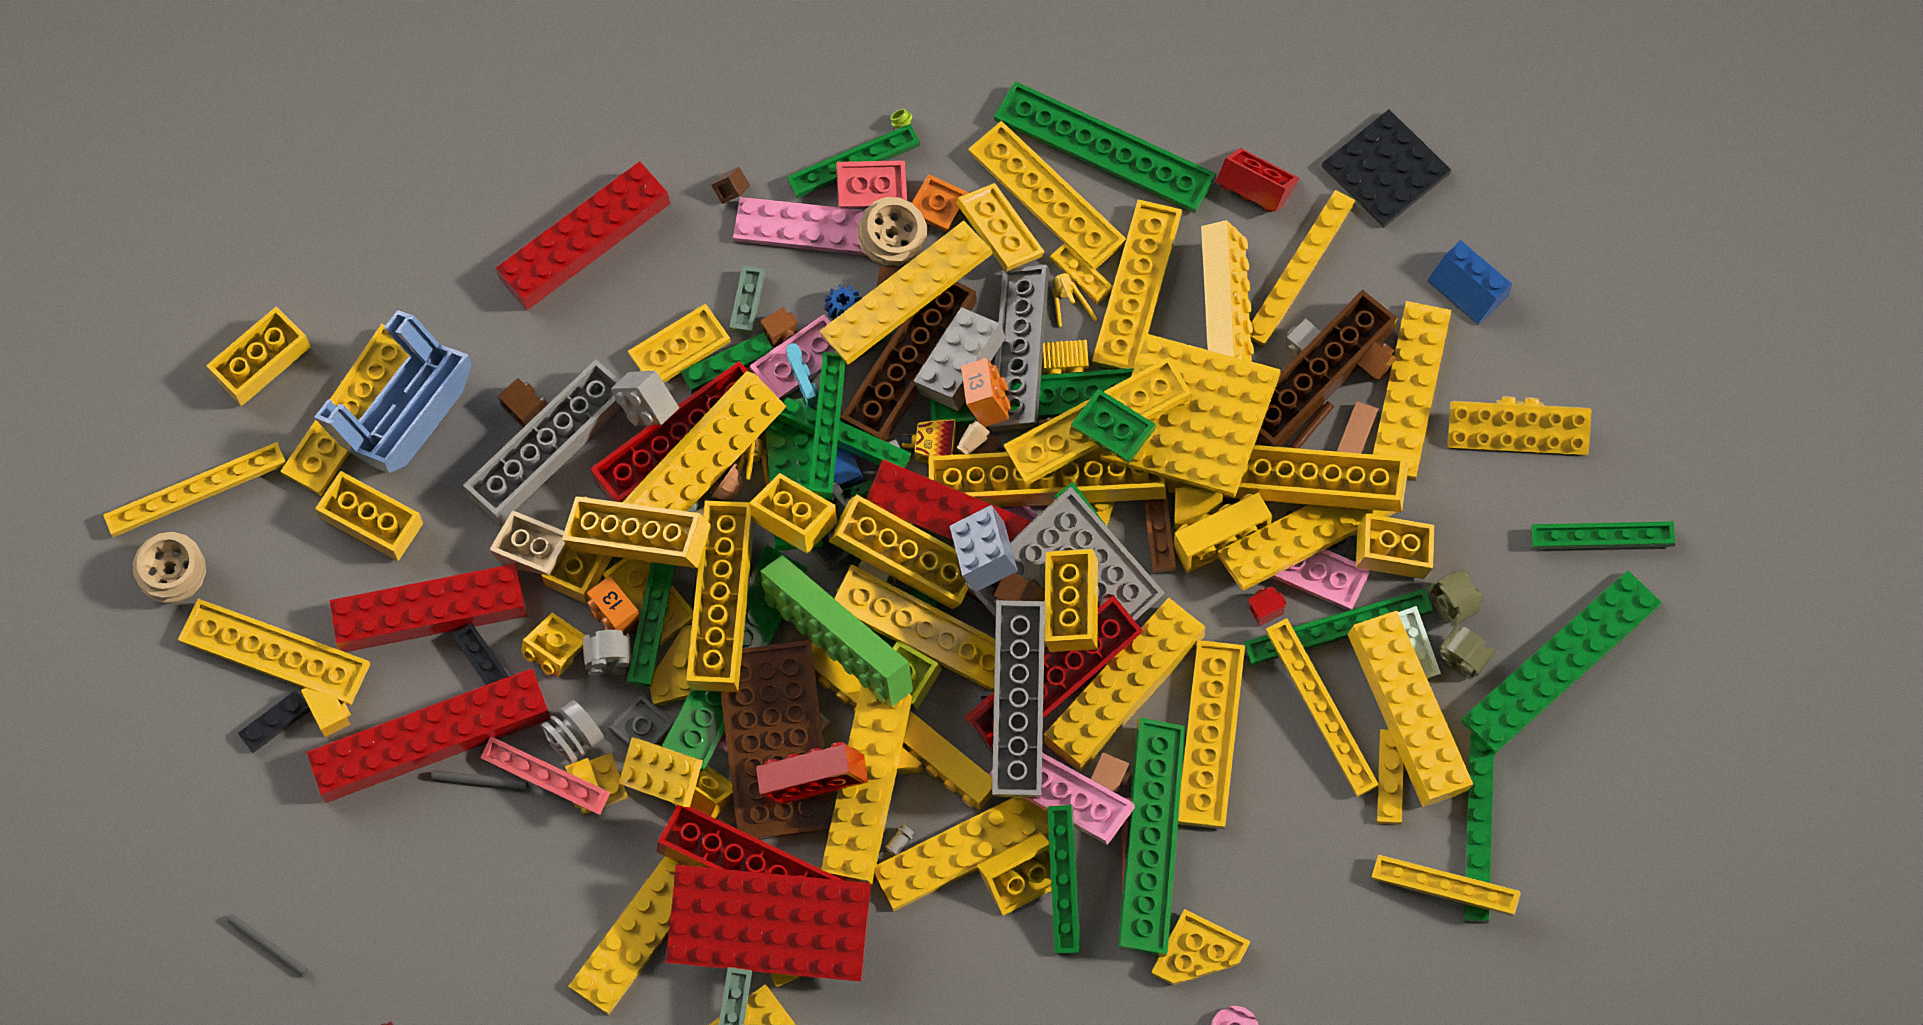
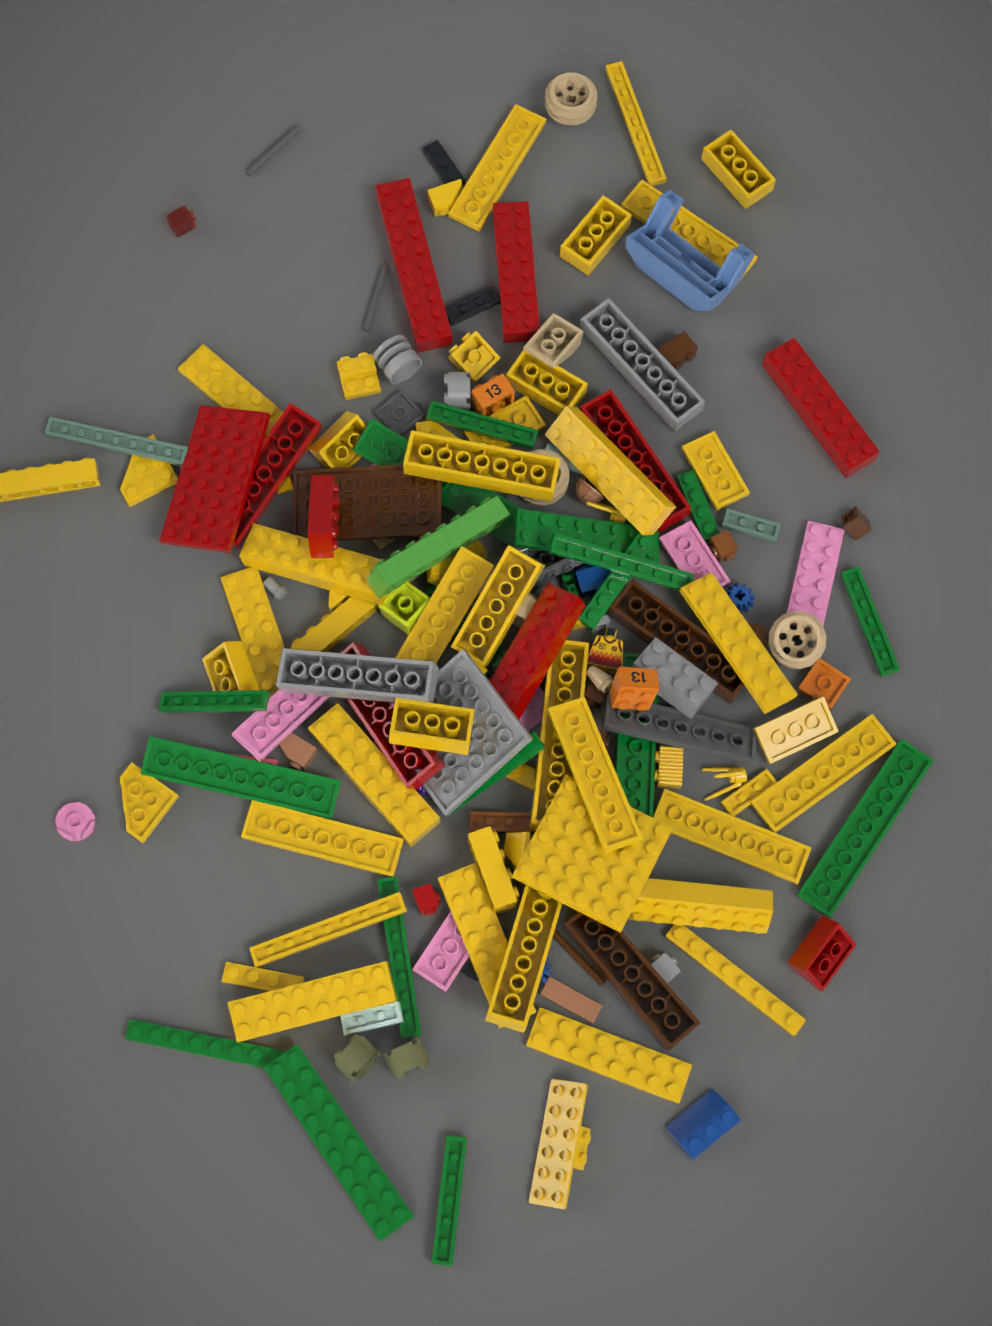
camera: 90 degrees right, 5 degrees up
(545, 775) = (365, 338): coral plate -> none
(636, 532) = (540, 406): yellow brick -> none
(644, 398) = (662, 430): light grey brick -> none
(660, 772) = (348, 412): yellow plate -> none
(793, 513) = (538, 520): yellow brick -> none
(801, 375) = (677, 554): medium azure hinge -> none
(869, 181) = (845, 631): coral plate -> none
(900, 118) = (906, 663): lime plate -> none
(983, 548) = (485, 661): sand blue brick -> none
(1017, 589) = (451, 686): reddish brown brick -> none
(1113, 426) = (582, 781): green plate -> none
(1377, 360) = (636, 1028): dark orange brick -> none
(1386, 168) = (825, 1070): black plate -> none
(1395, 546) = (459, 1013): yellow brick -> none
(1446, 885) = (156, 1006): yellow plate -> none

